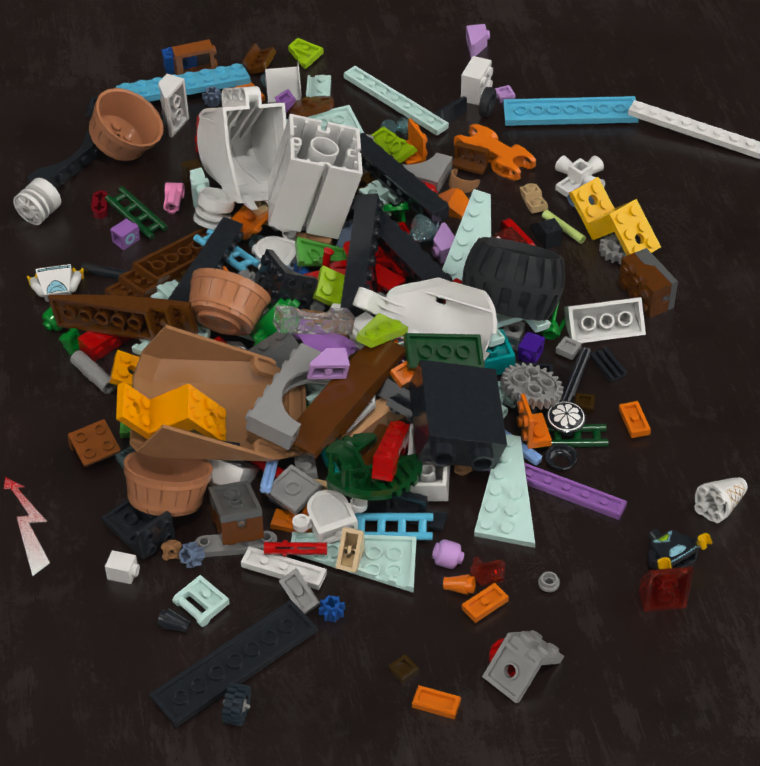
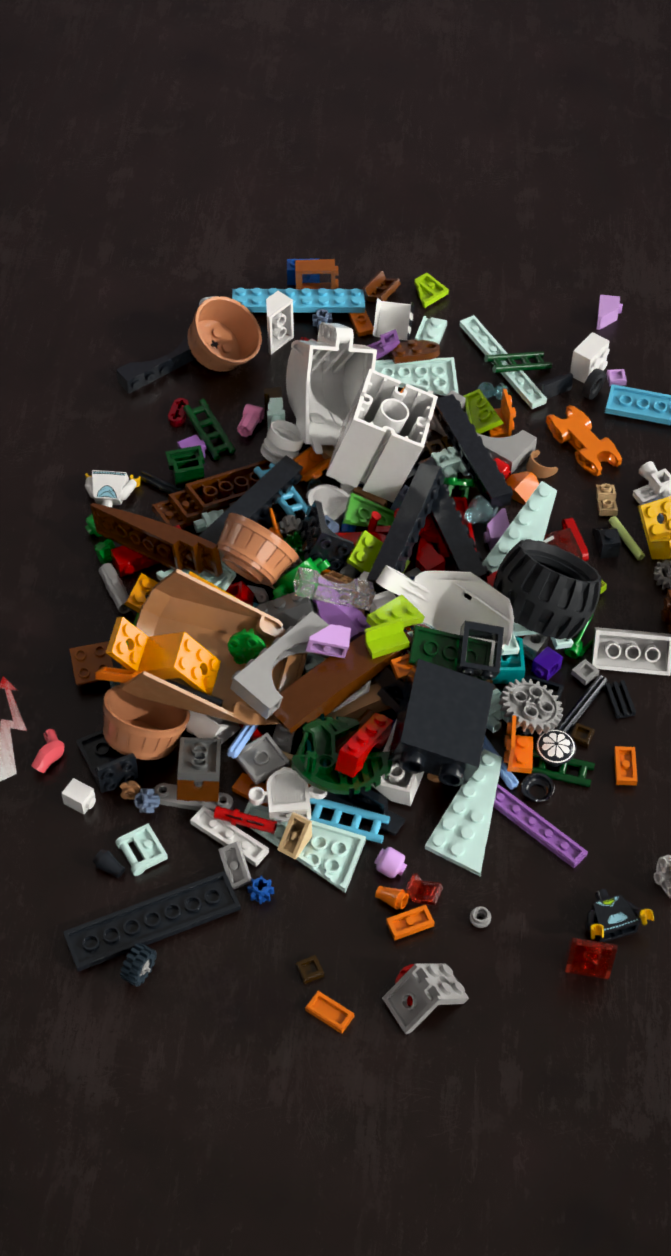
camera: 15 degrees right, 5 degrees up
(37, 201) = (118, 397): white wheel -> none
(78, 535) = (49, 752): none -> coral arm
(126, 247) = (186, 465): none -> dark green plate
(129, 440) = (115, 674): none -> orange tile
(242, 391) = (245, 646): none -> green plate
(381, 351) = (386, 638): none -> lime panel
(407, 101) = (513, 366): none -> dark green bar
(470, 158) = (556, 442): reddish brown bracket -> none
(471, 325) = (485, 632): none -> black window

